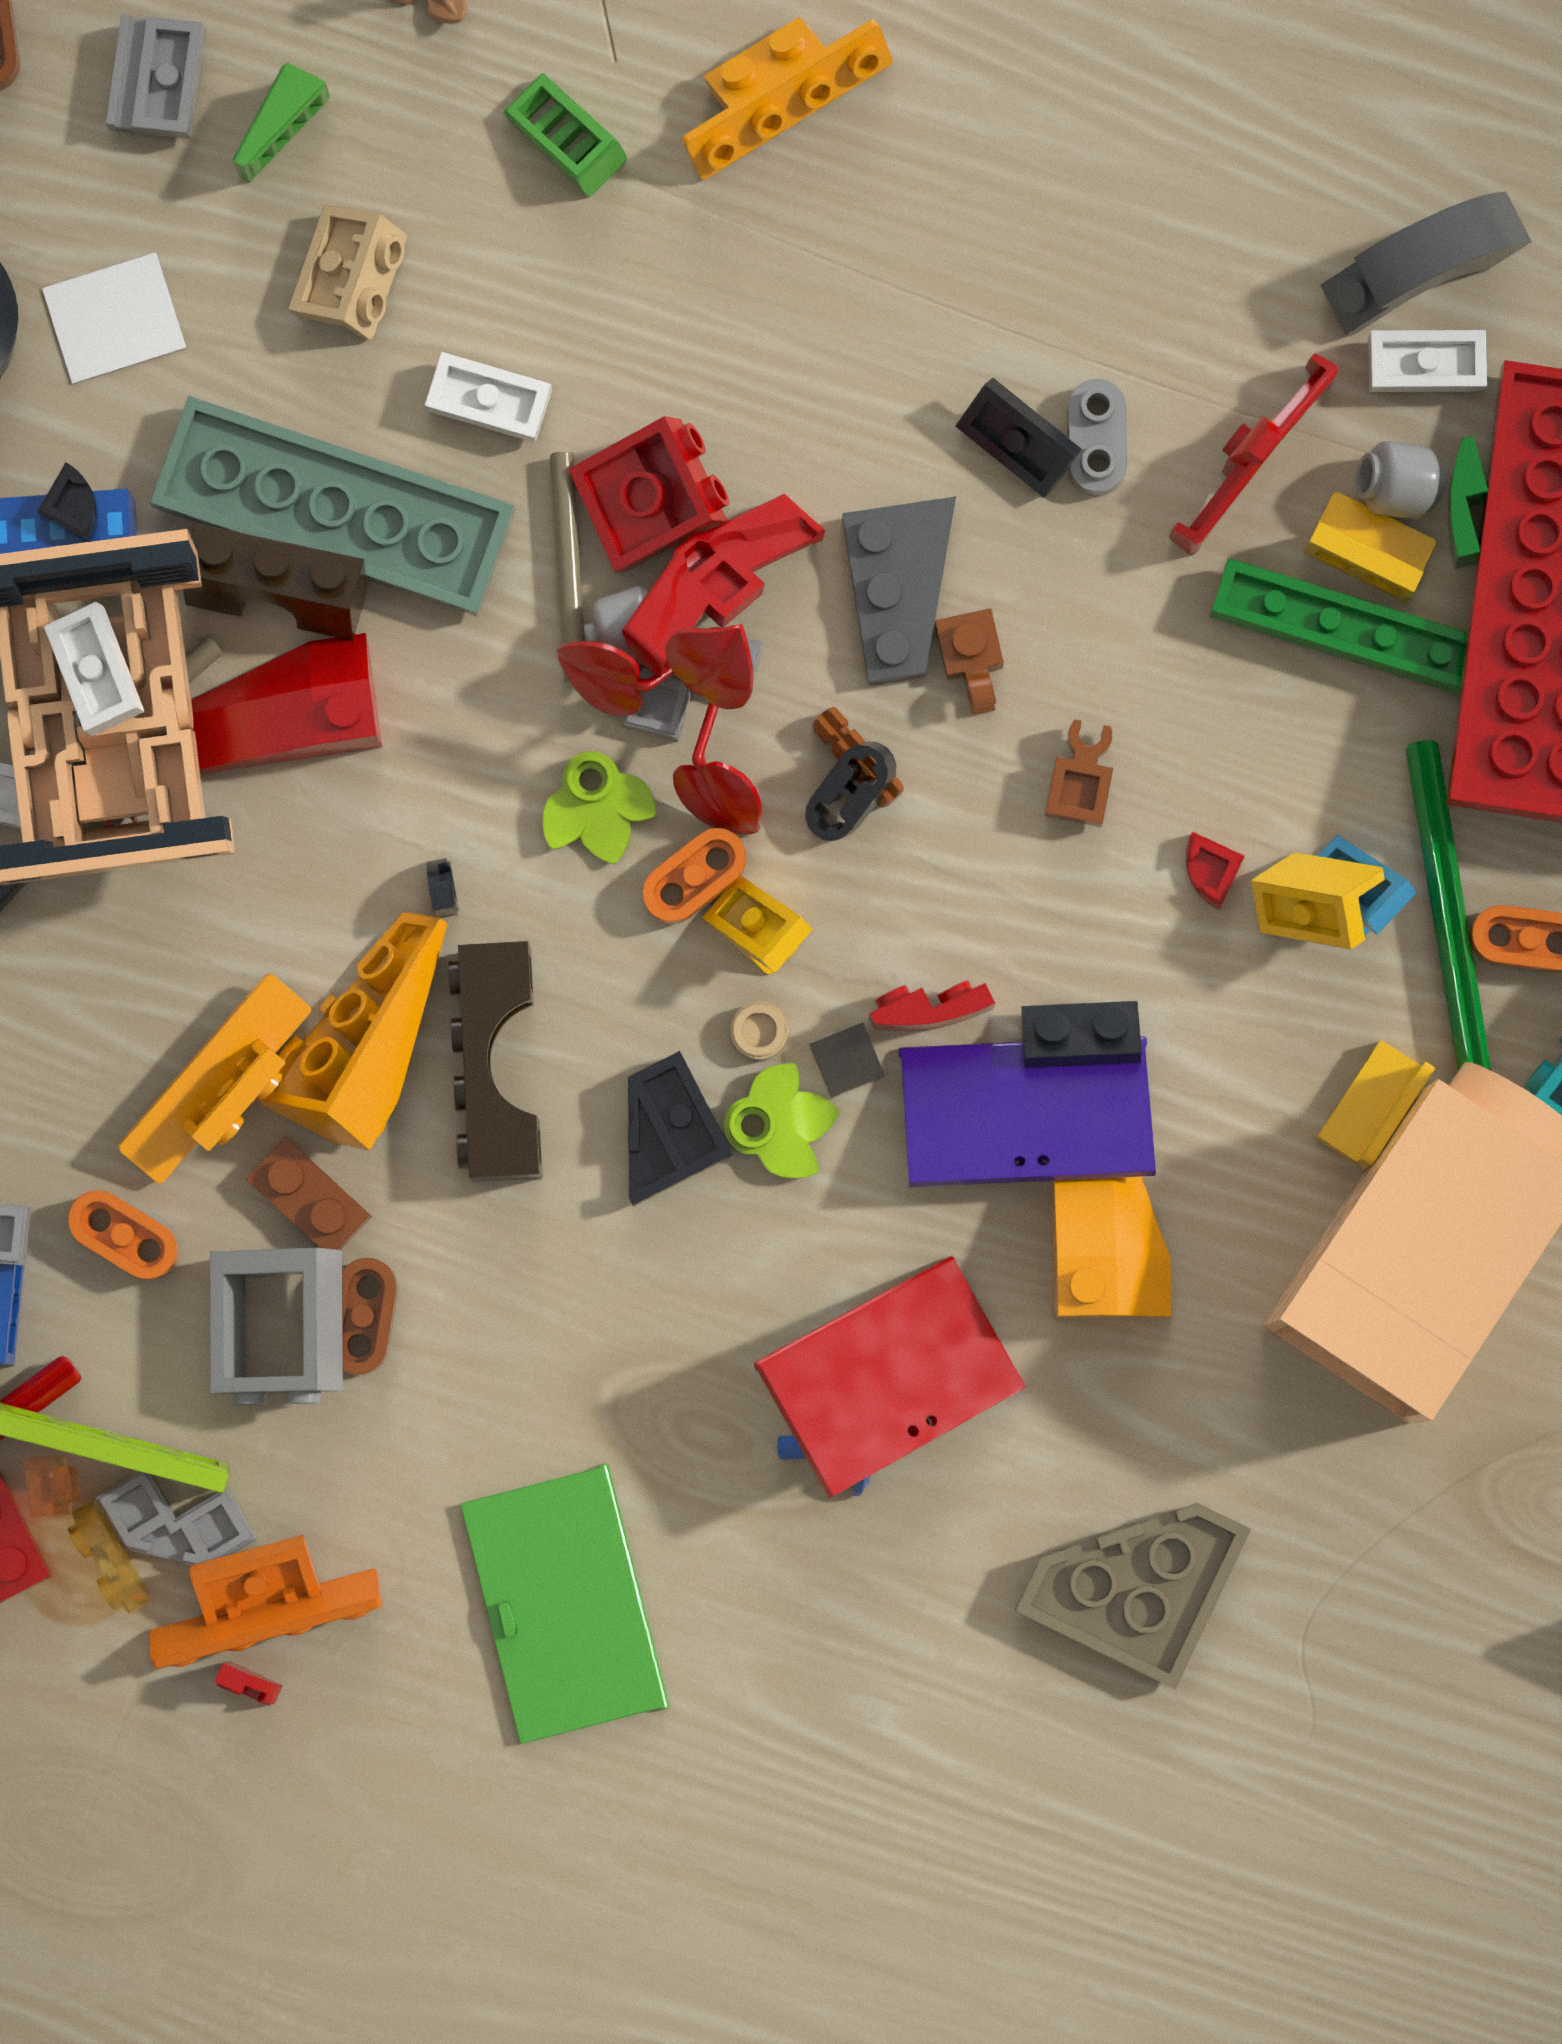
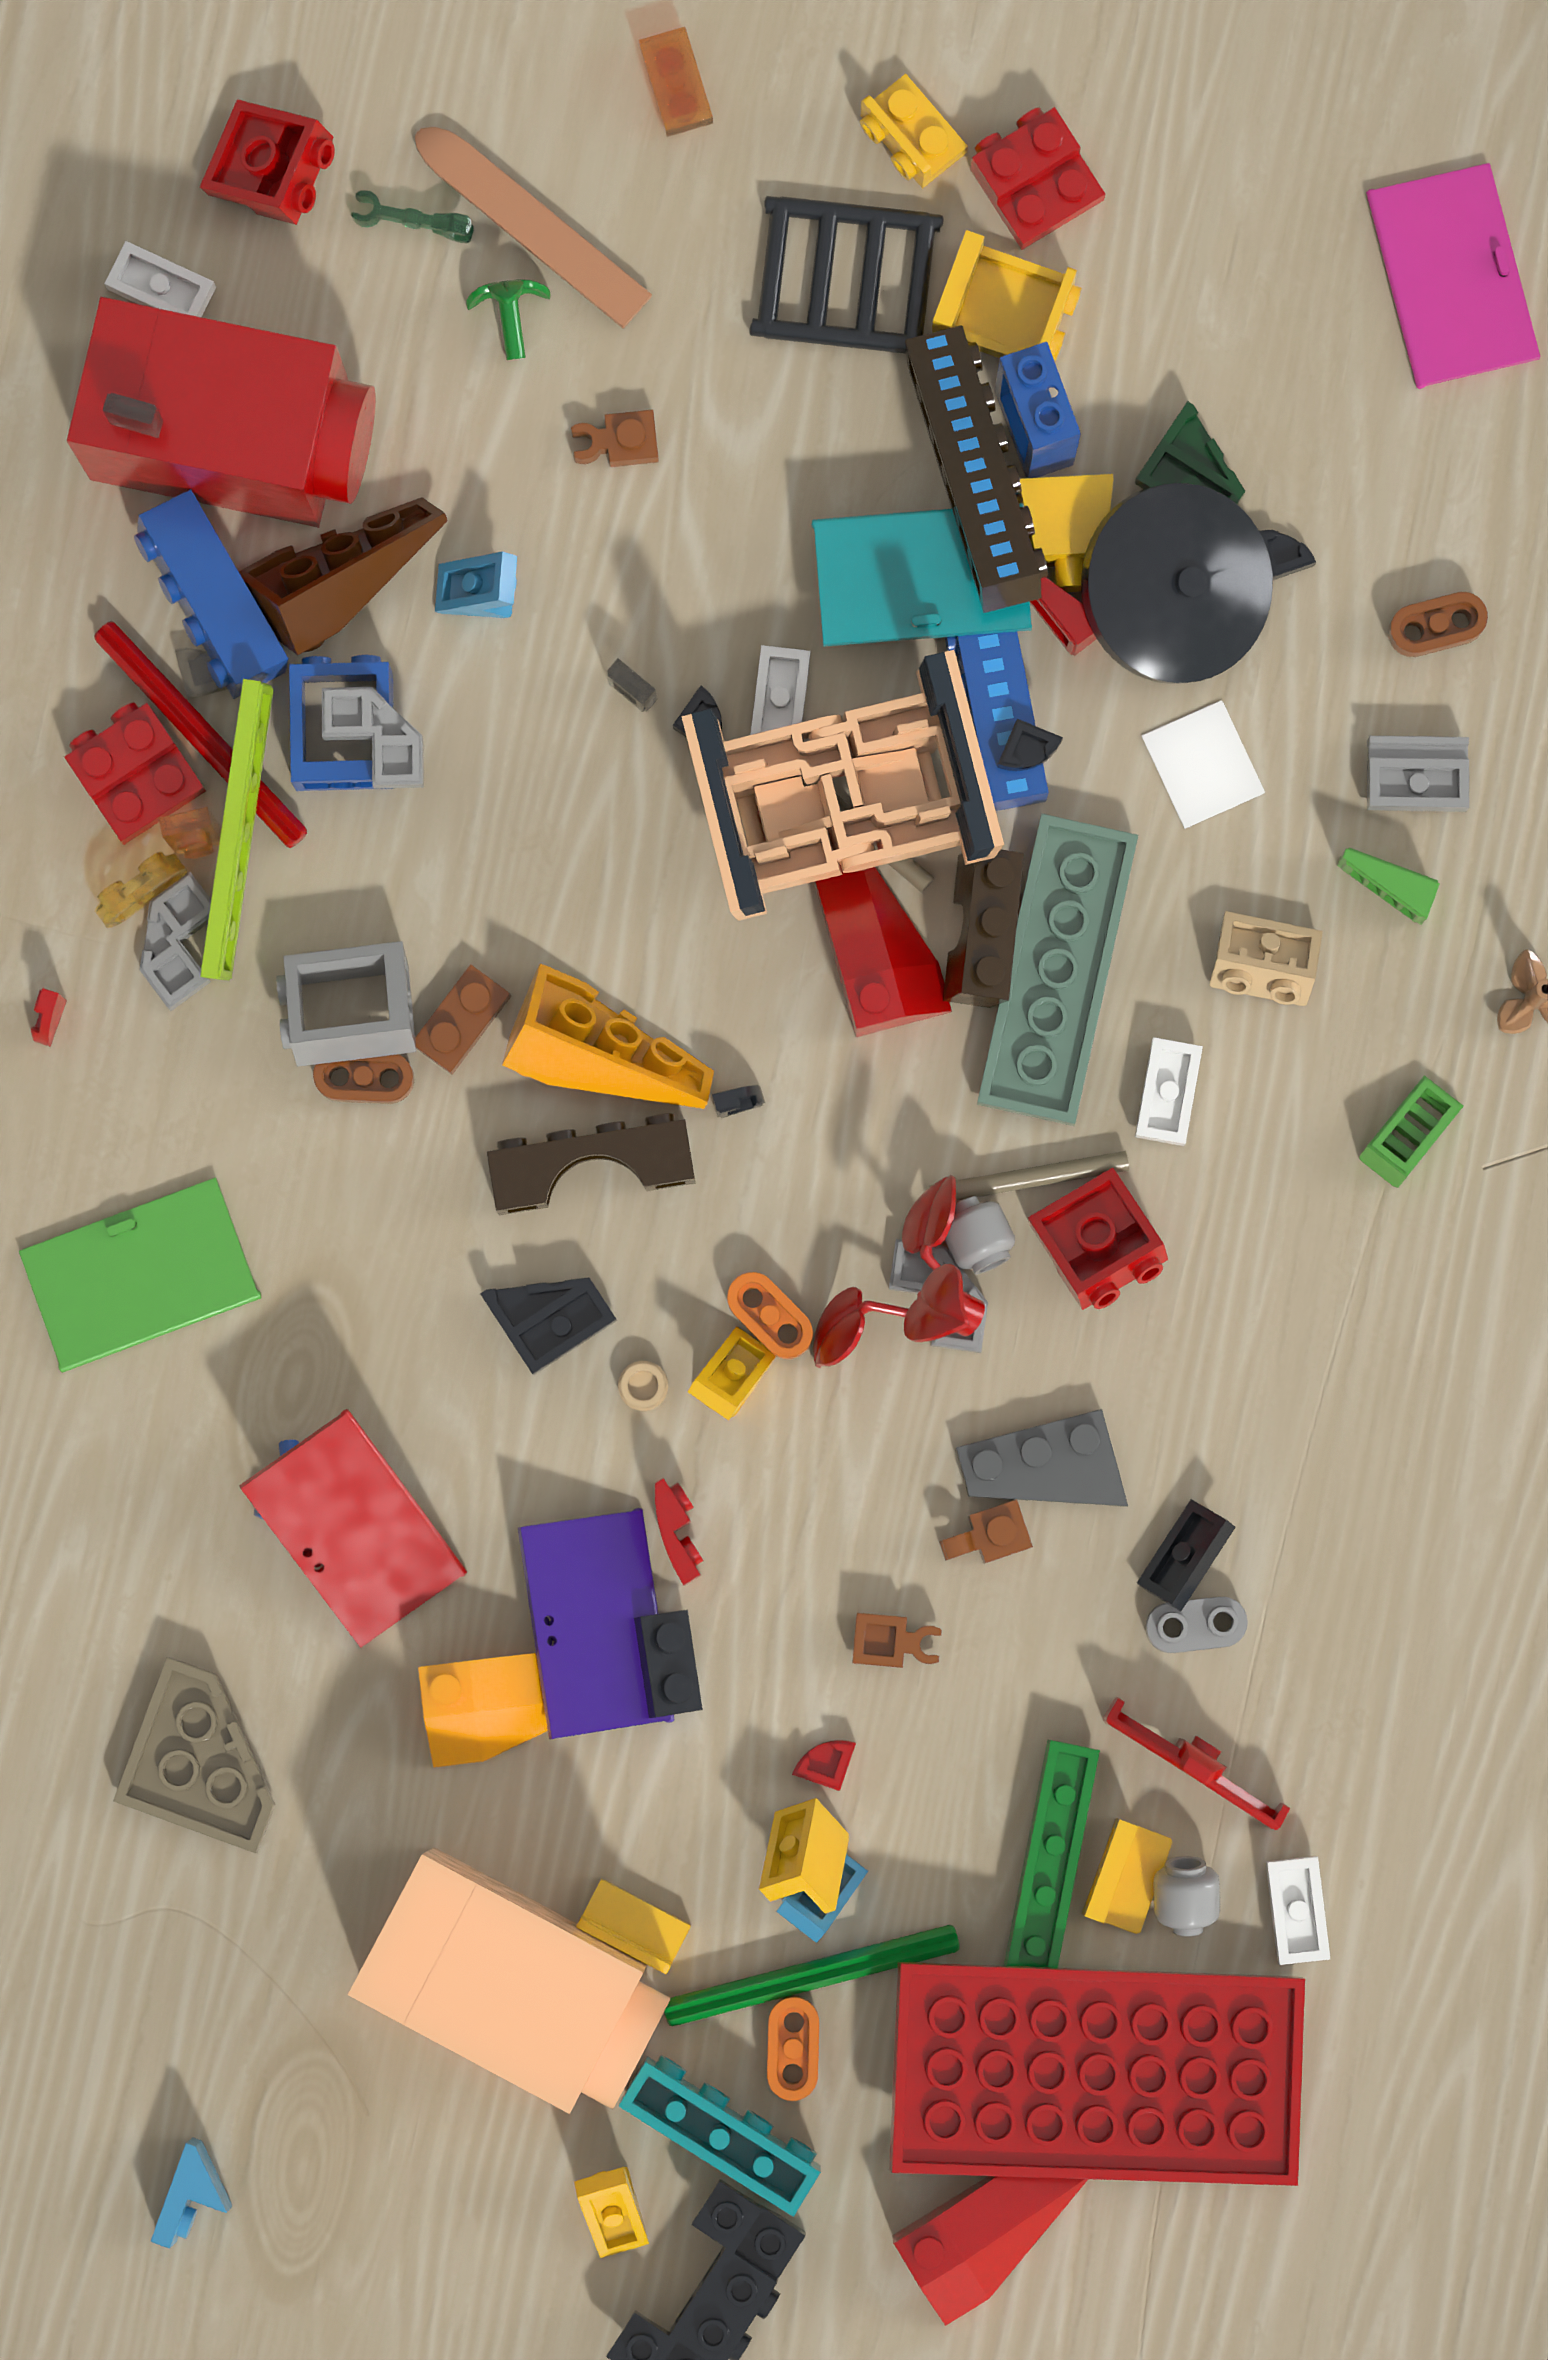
camera: 85 degrees right, 0 degrees up
(94, 668) = (878, 781): white plate -> none
(124, 1236) = (409, 868): orange plate -> none
(218, 1082) = (549, 932): light orange bracket -> none
(259, 1598) = (117, 1018): orange bracket -> none
(596, 816) = (813, 1225): lime plate -> none
(716, 575) = (1030, 1304): red plate -> none
(779, 86) = (1475, 1311): light orange bracket -> none
(789, 1120) = (568, 1420): lime plate -> none
(832, 728) = (890, 1445): dark orange axle -> none
(840, 783) = (851, 1450): black beam -> none
(847, 1060) = (625, 1464): clear smoke tile -> none
(1423, 255) = (1387, 1900): dark grey arch -> none
(1466, 490) = (1186, 1954): green slope -> none

